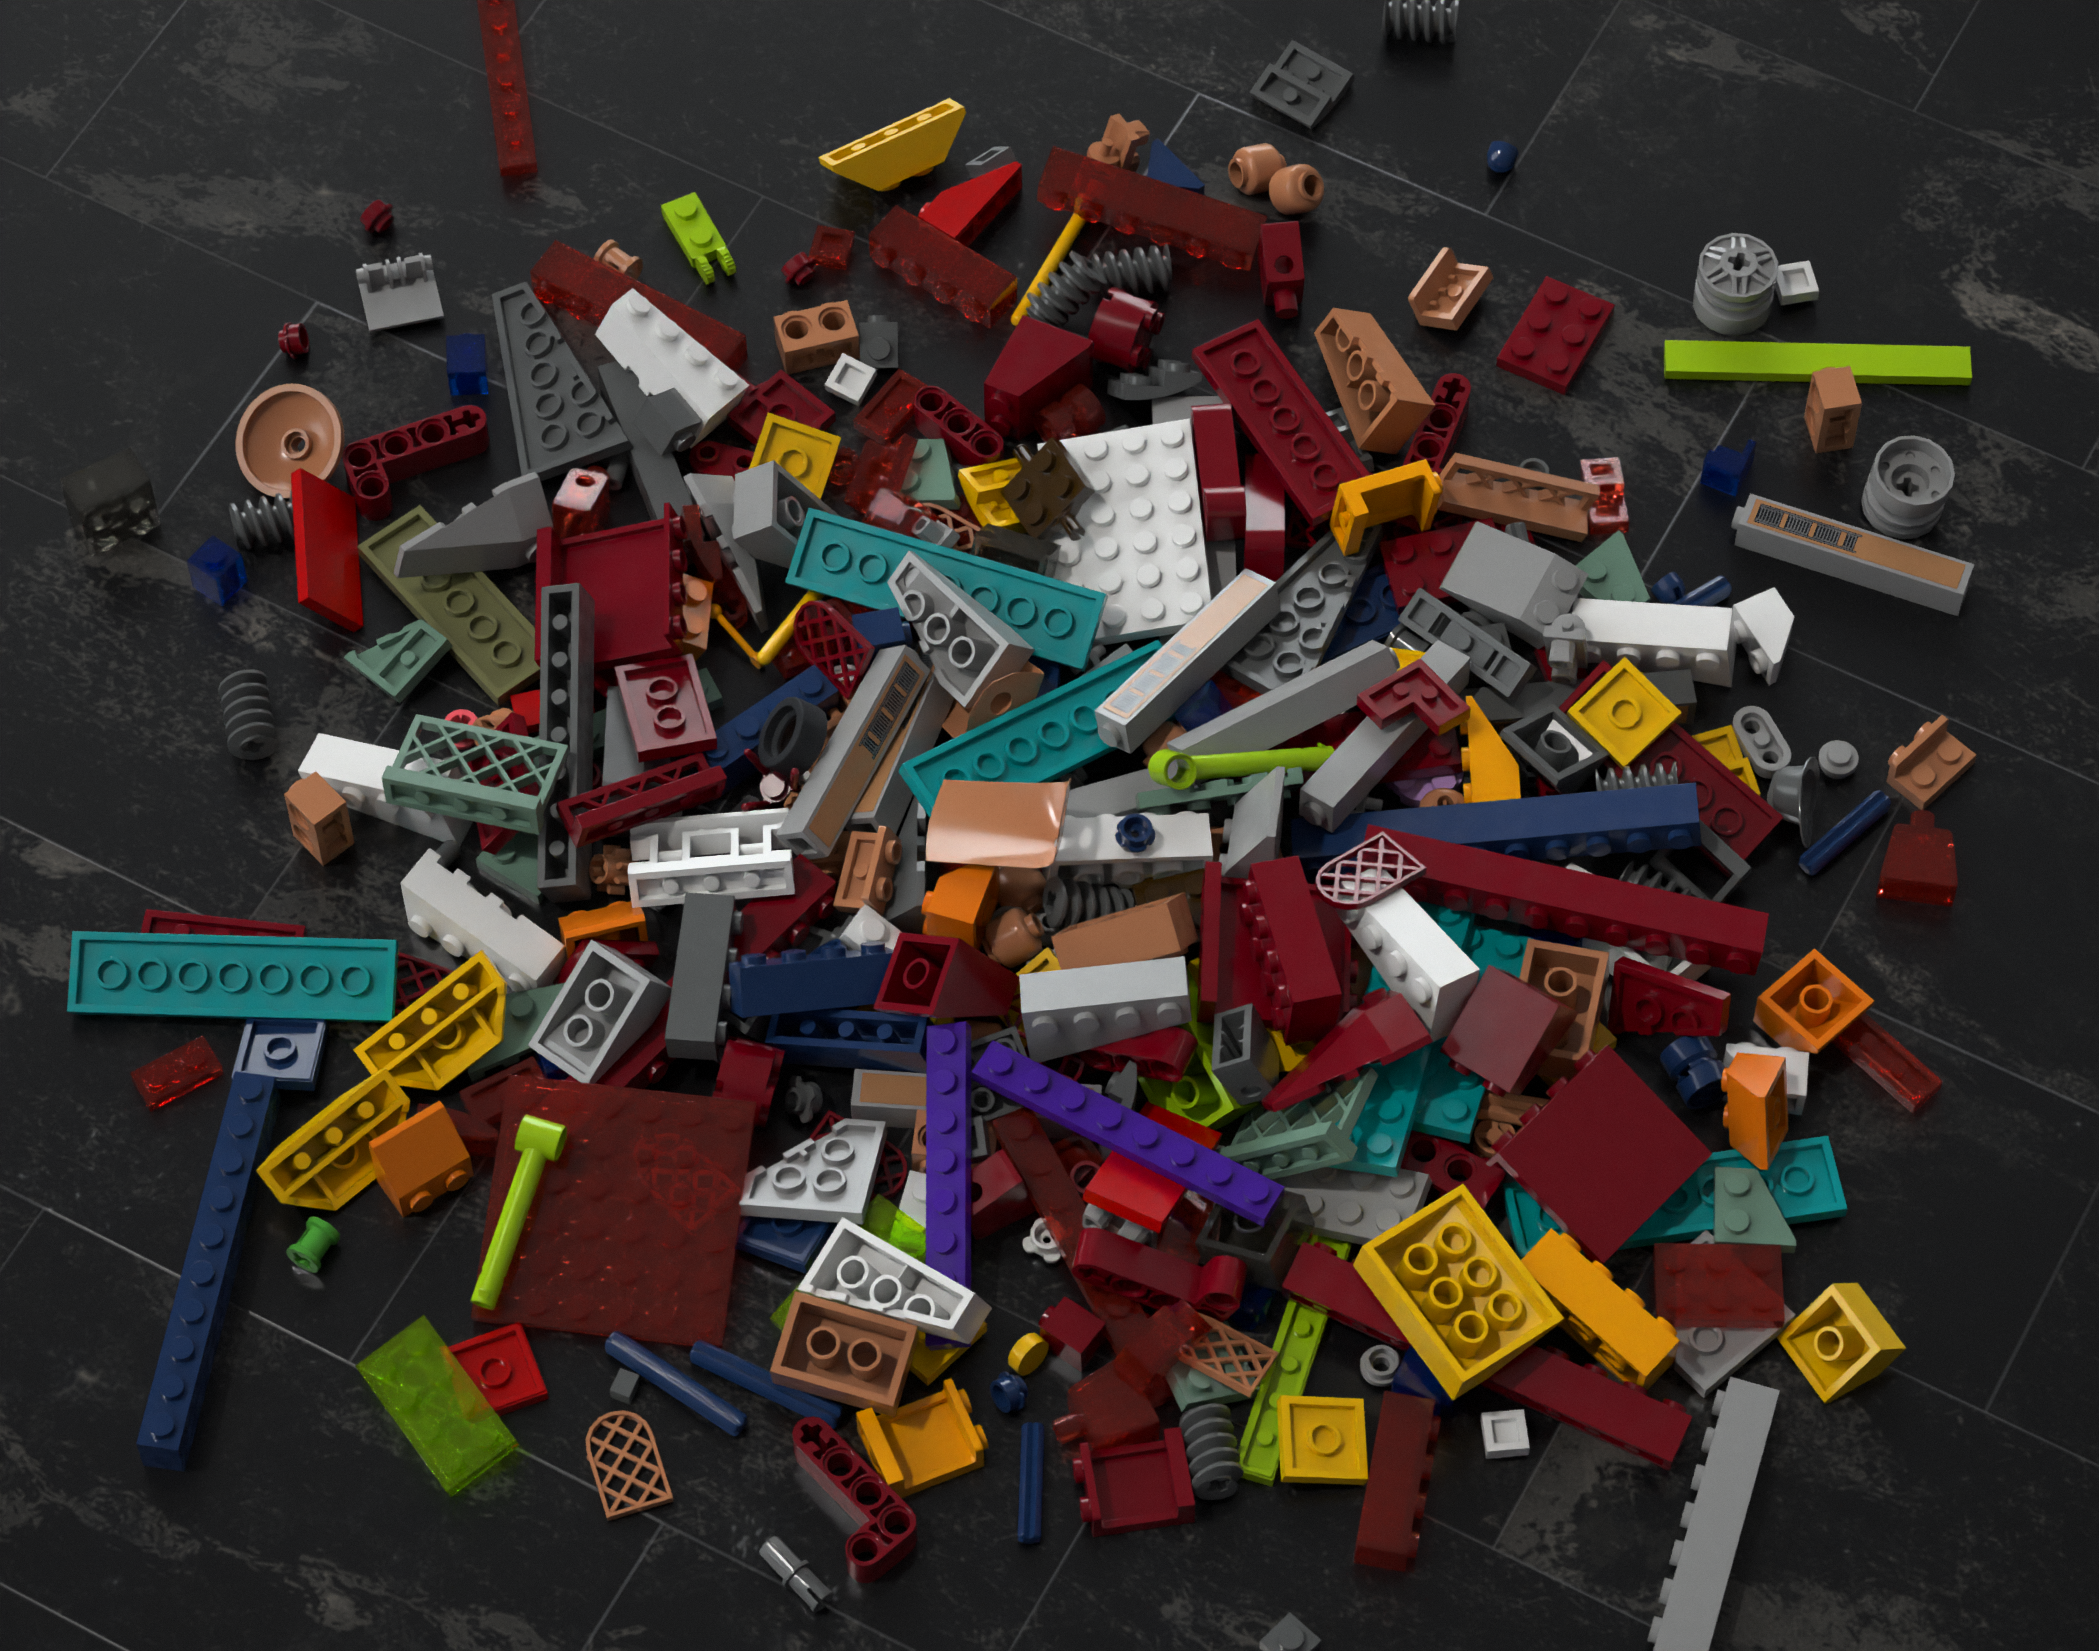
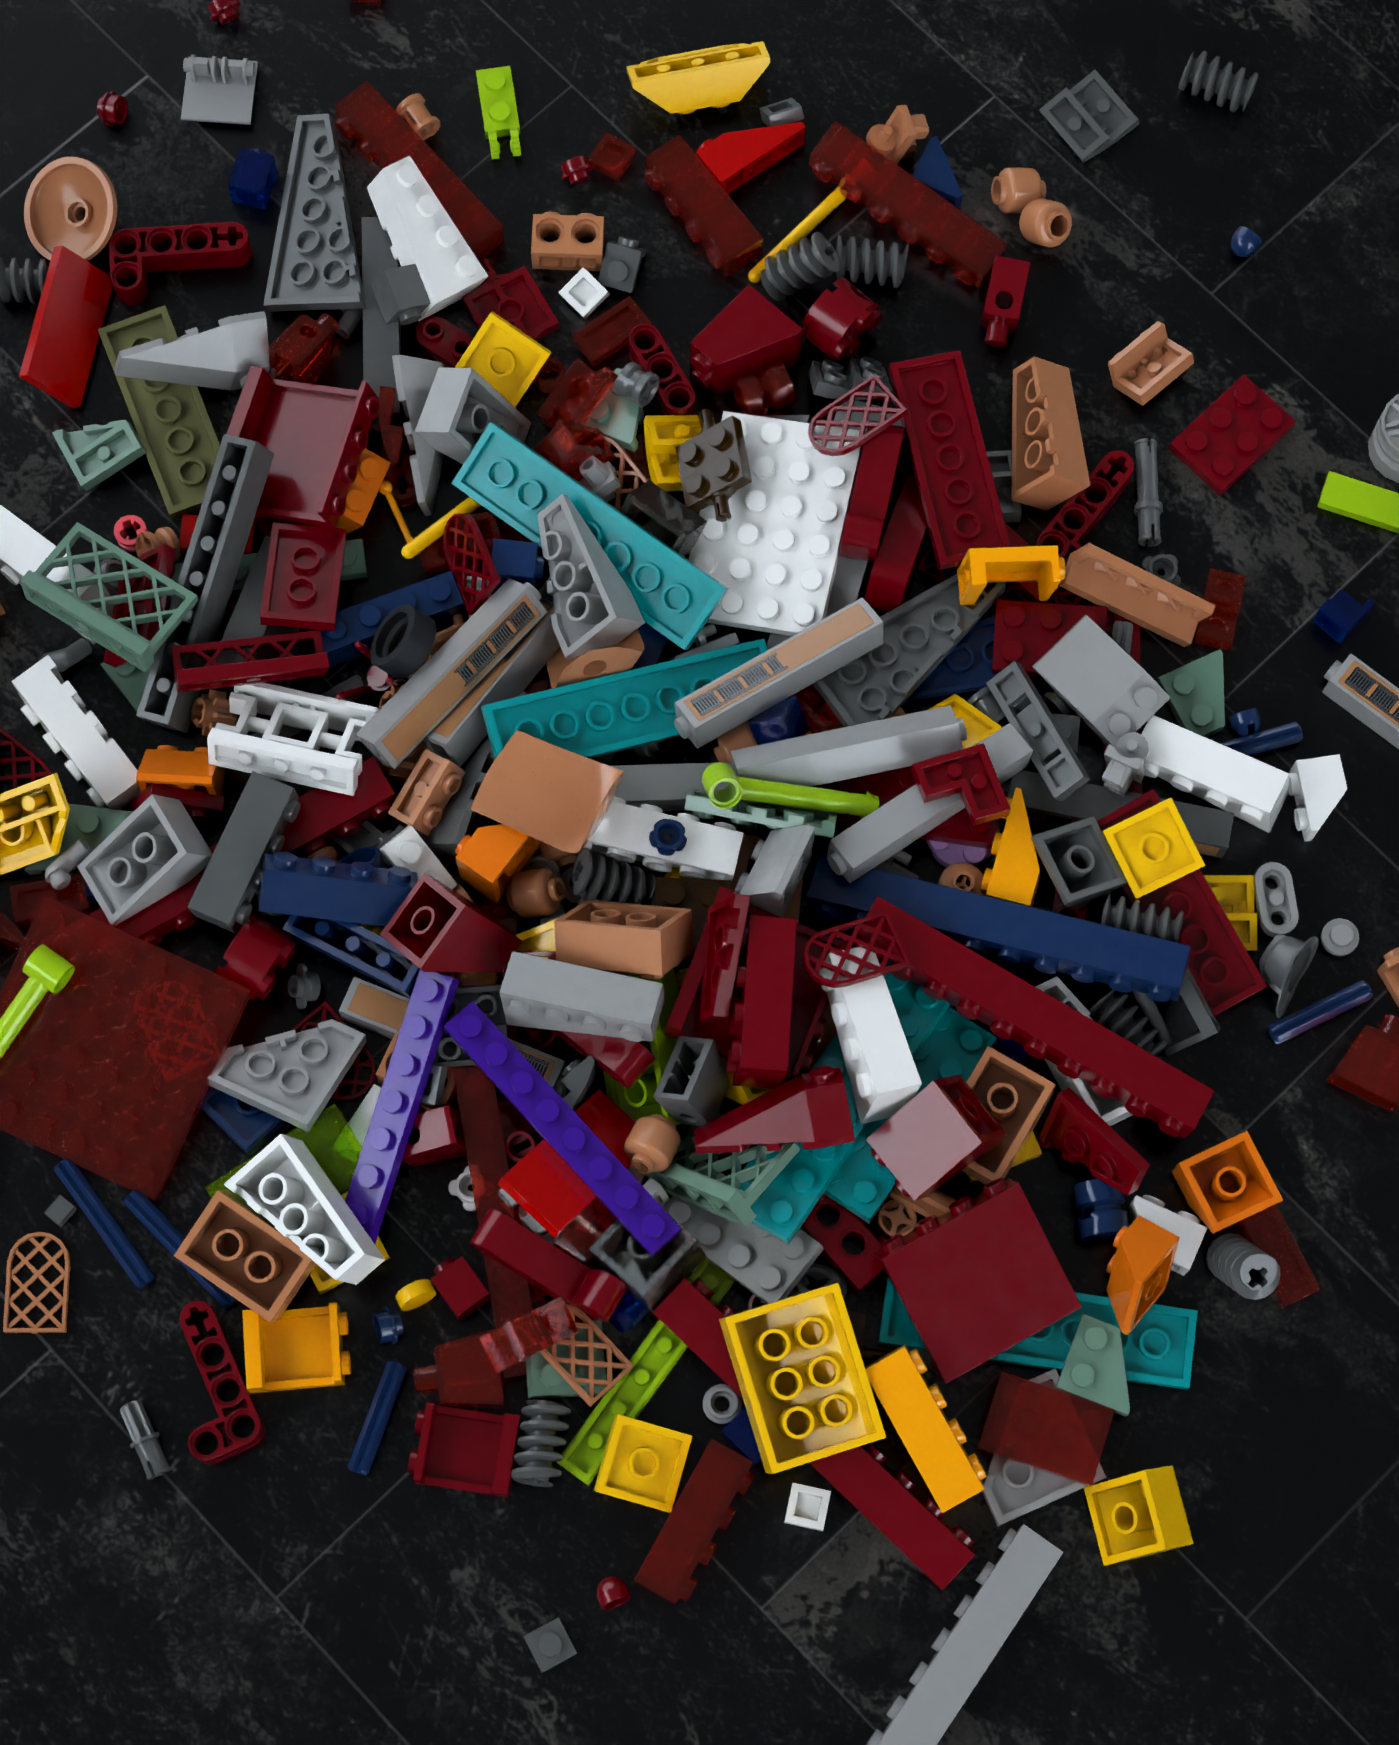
camera: 15 degrees right, 15 degrees up
(509, 1056) = (58, 870): none -> light grey arm
(941, 441) = (637, 384): none -> dark grey wheel
(1219, 388) = (877, 427): none -> dark red window
(1224, 1125) = (652, 1144): none -> nougat head
(1233, 914) = (722, 951): none -> dark red wing
(1336, 1574) = (612, 1593): none -> dark red hinge
(1496, 419) = (1148, 505): none -> dark grey pin
(1858, 1077) = (1243, 1266): none -> dark grey piece

